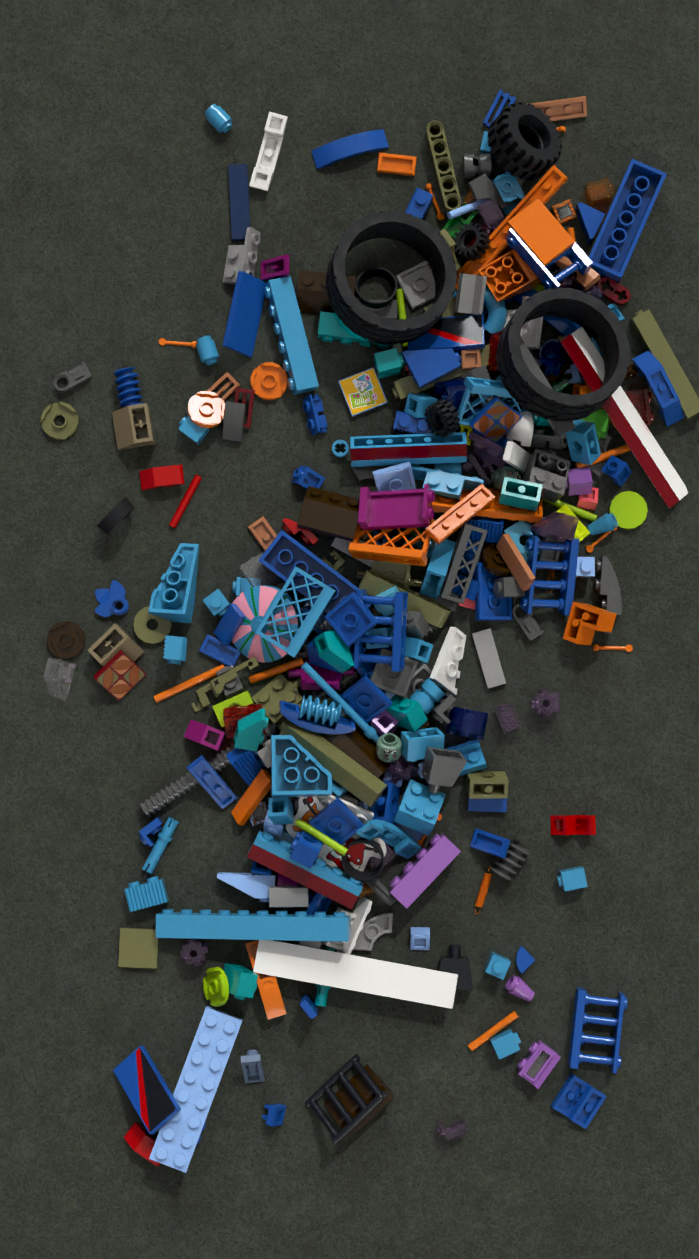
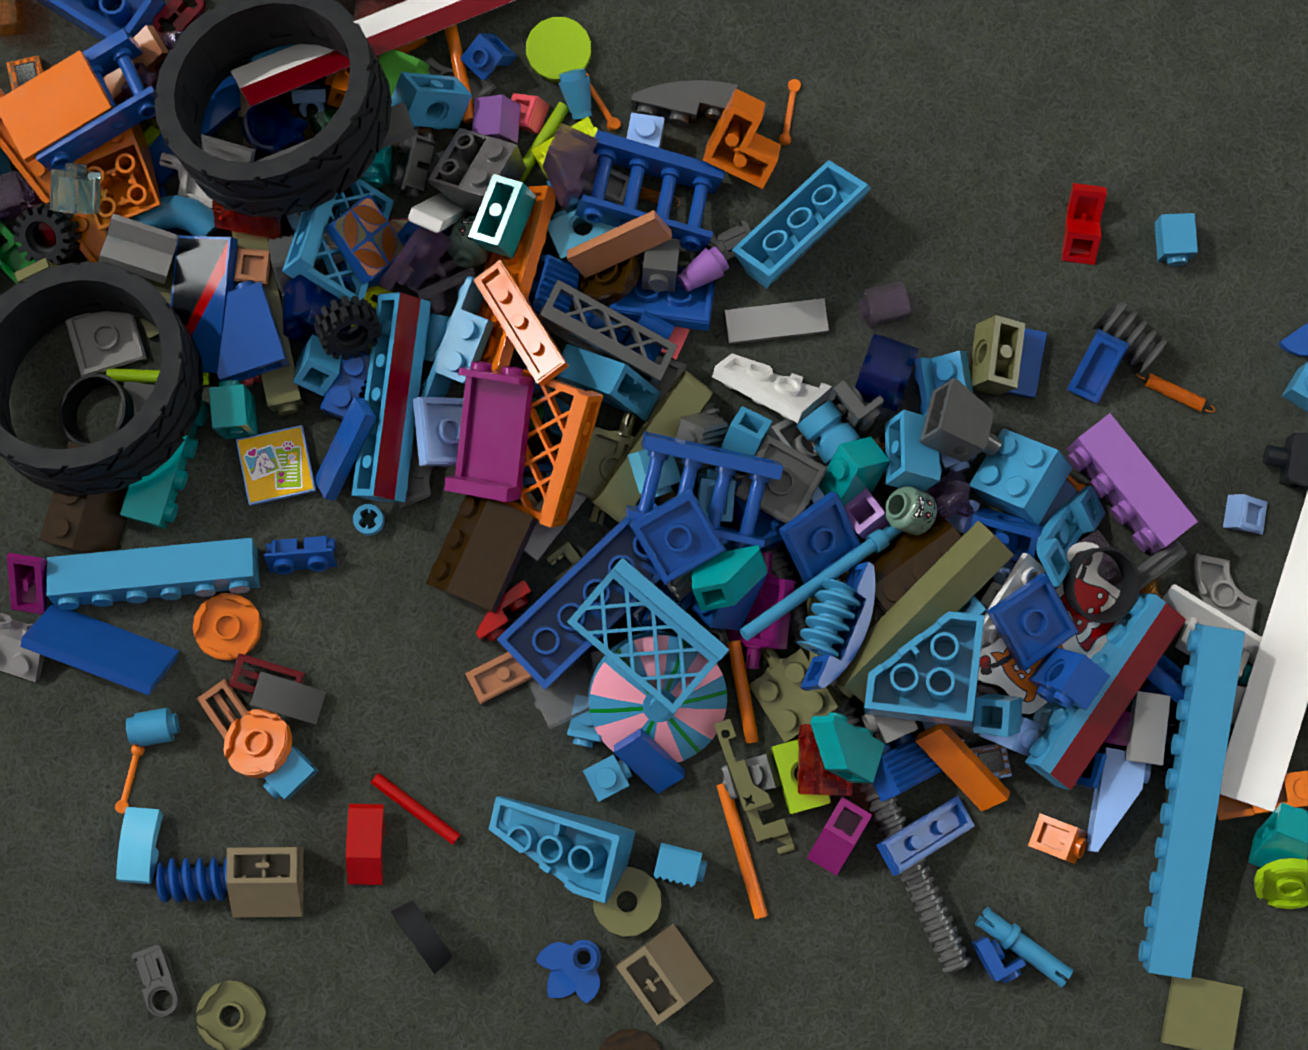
camera: 80 degrees left, 5 degrees down
(119, 675) = (710, 973): tile -> none
(142, 354) = (137, 845): none -> medium azure slope
(146, 894) = (1108, 985): dark azure brick -> none
(197, 945) = (1212, 909): clear purple brick -> none
(221, 856) = (1058, 839): none -> bracket
(223, 653) = (691, 791): blue tile -> none
(307, 477) = (410, 585): blue bracket -> none
(321, 837) = (1053, 651): lime bar -> none
(376, 428) = (345, 448): none -> blue tile
(496, 253) = (75, 190): none -> clear light blue brick
(510, 612) = (703, 269): none -> medium lavender cone
(522, 430) = (391, 197): white brick -> none
(545, 662) = (799, 223): none -> dark azure slope
(552, 699) = (872, 224): clear purple brick -> none
(589, 219) = (49, 34): blue slope -> none

